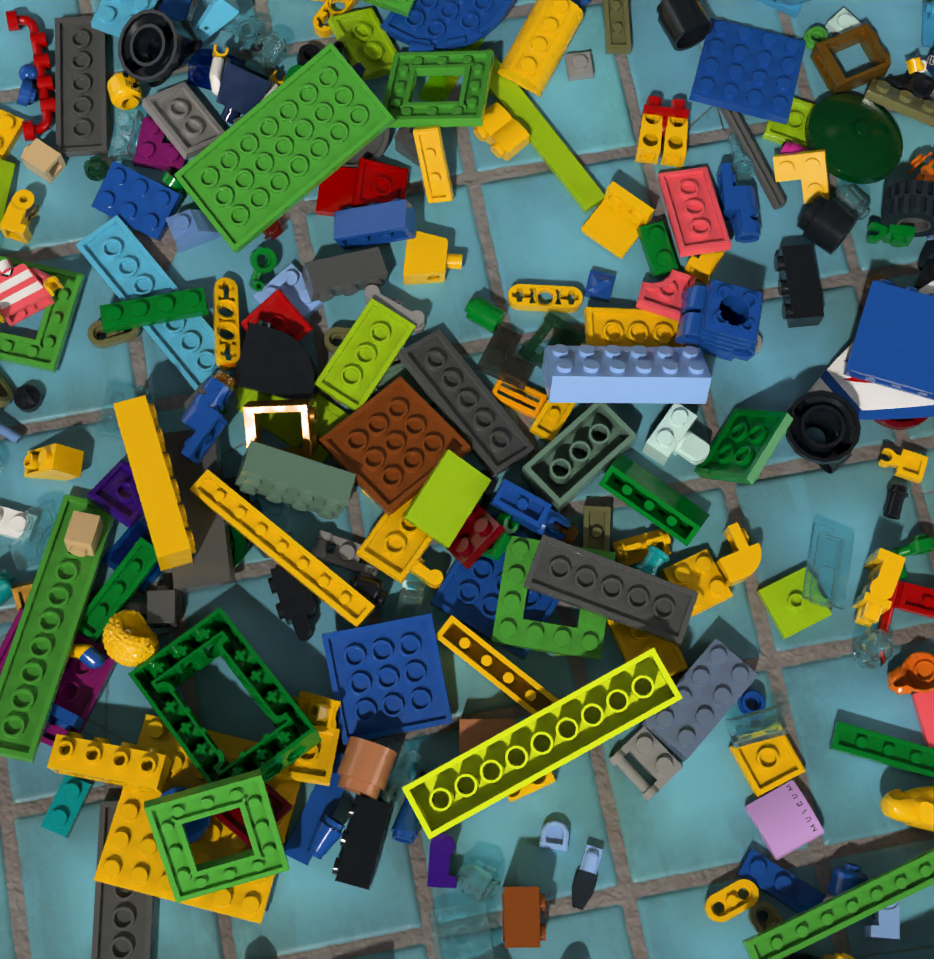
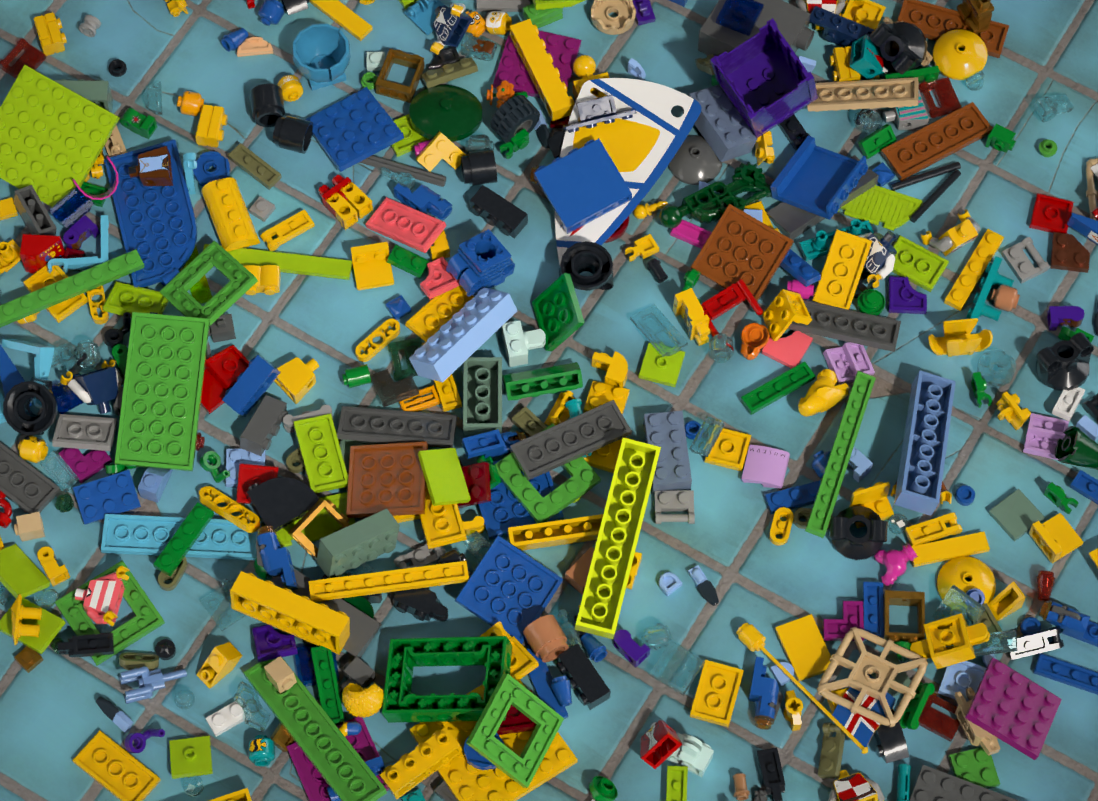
camera: 45 degrees left, 10 degrees down
(433, 163) = (248, 326): yellow tile -> none
(522, 917) = (695, 628): dark orange brick -> none
(578, 108) = (287, 230): none -> yellow plate

